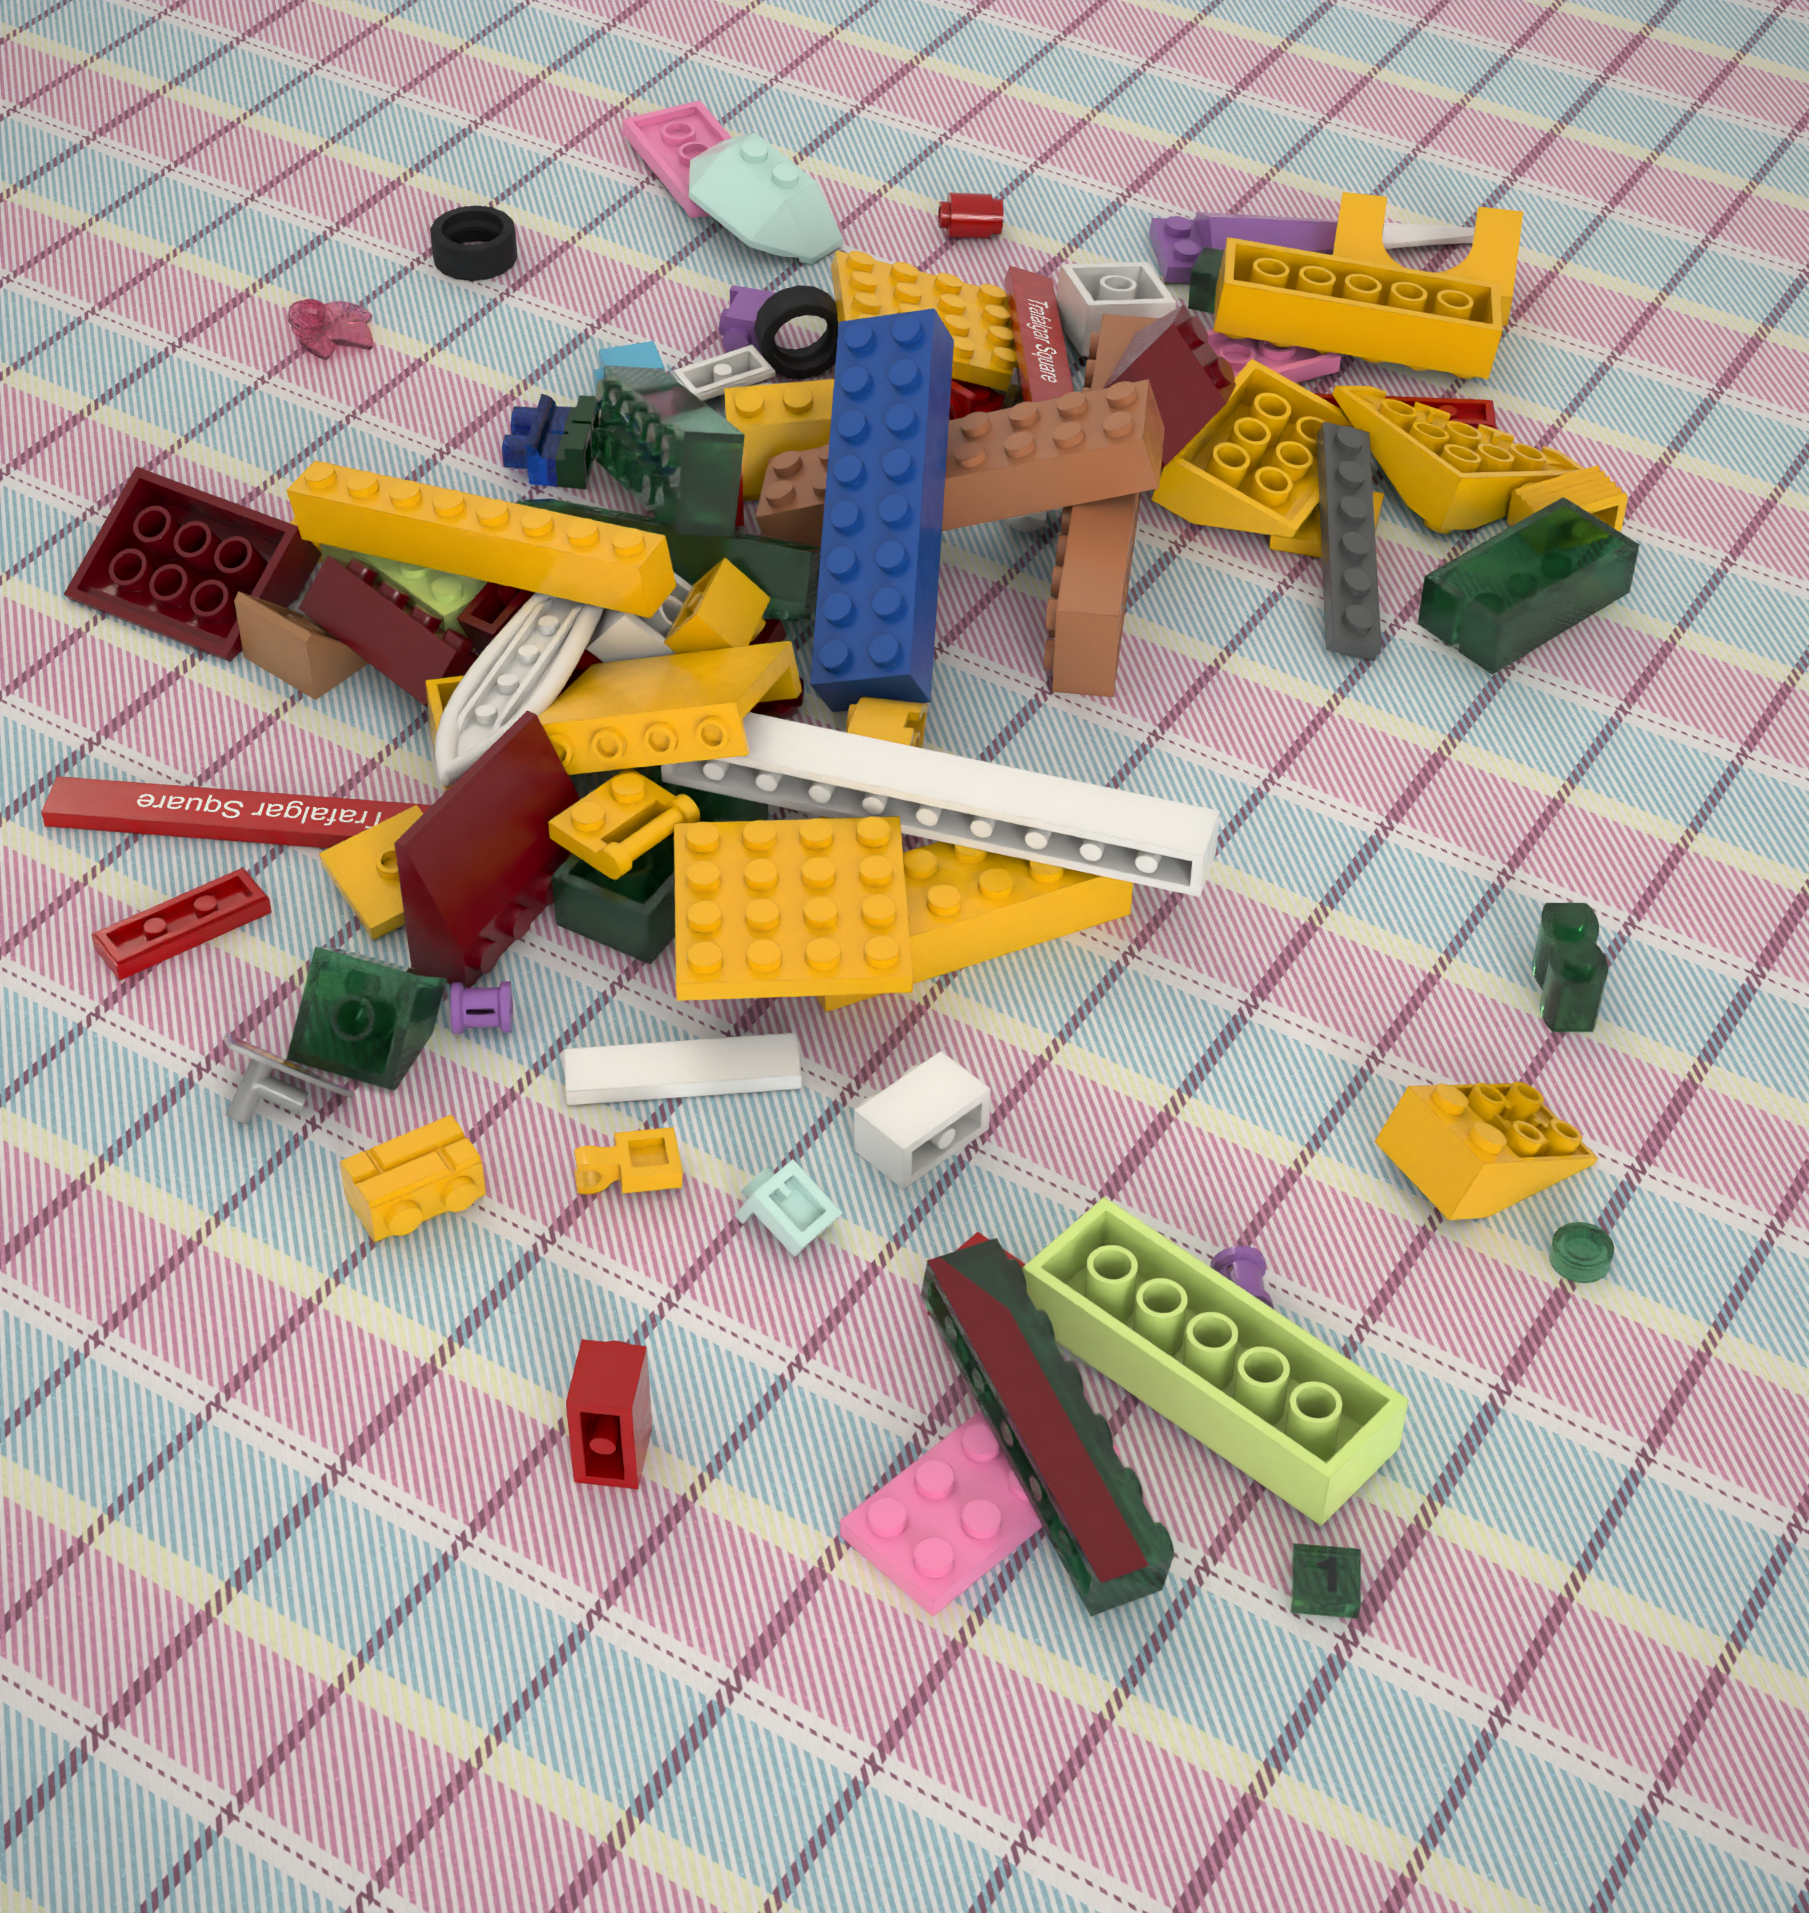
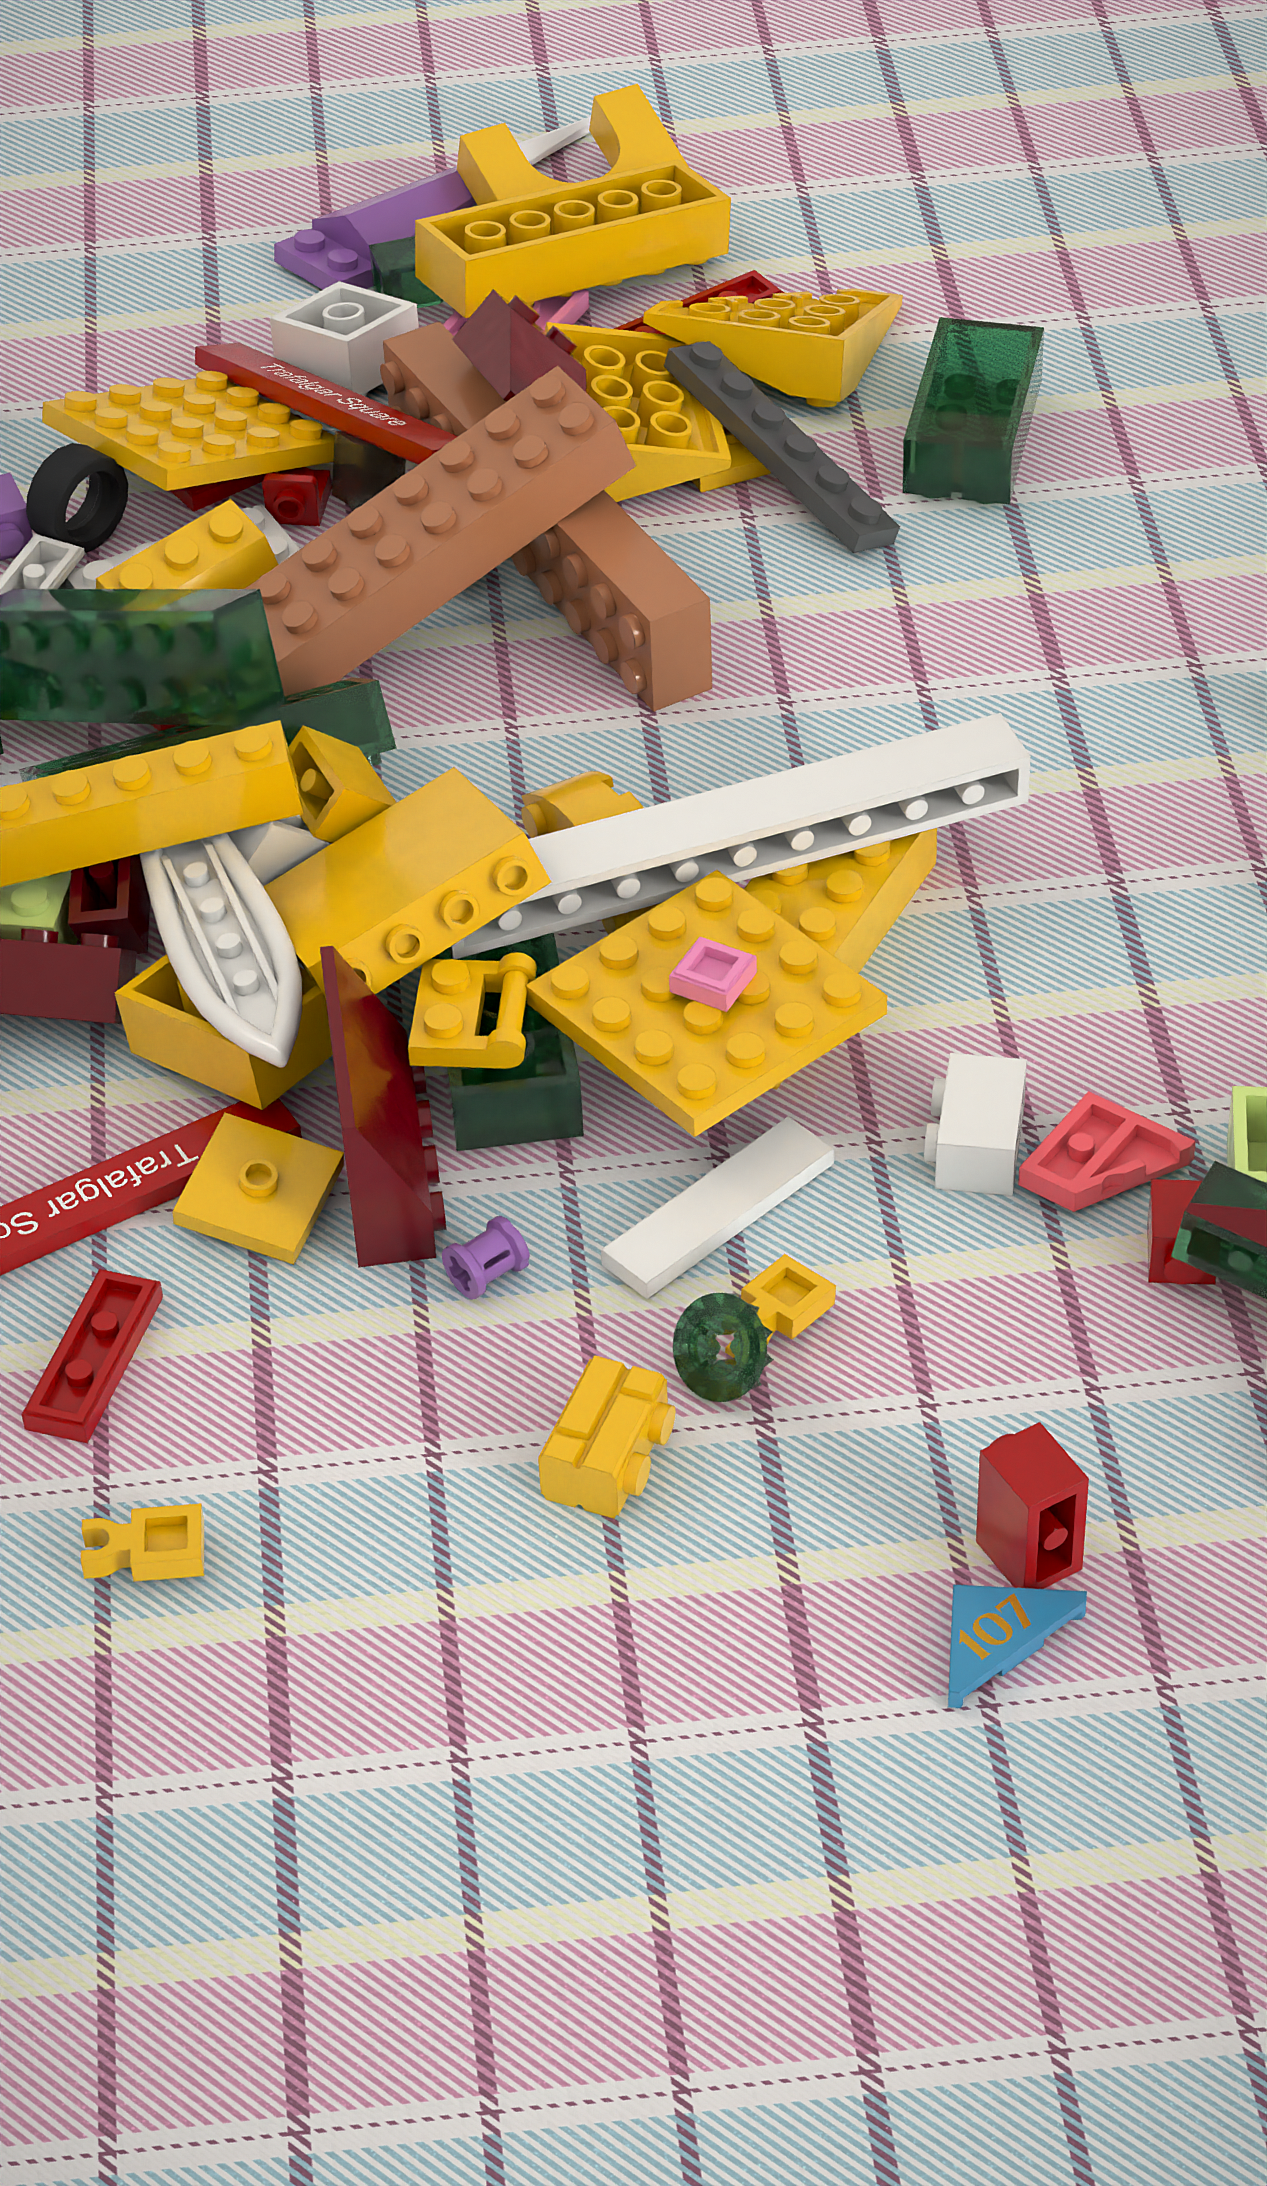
camera: 35 degrees left, 0 degrees up
(66, 1071) = (156, 1544): none -> yellow plate
(259, 1083) = (363, 1442): light grey shield -> none
(364, 1017) = (391, 1329): clear green slope -> none
(518, 1490) = (1000, 1629): none -> dark azure tile
(552, 1165) = (697, 1348): none -> clear green gear
(788, 1206) = (953, 1258): light aqua bracket -> none
(794, 886) = (713, 974): none -> bright pink tile
(883, 510) = (404, 601): blue brick -> none
(971, 215) = (97, 318): red brick -> none
(986, 1194) = (1101, 1153): none -> coral wing
(1585, 488) = (906, 337): yellow brick -> none

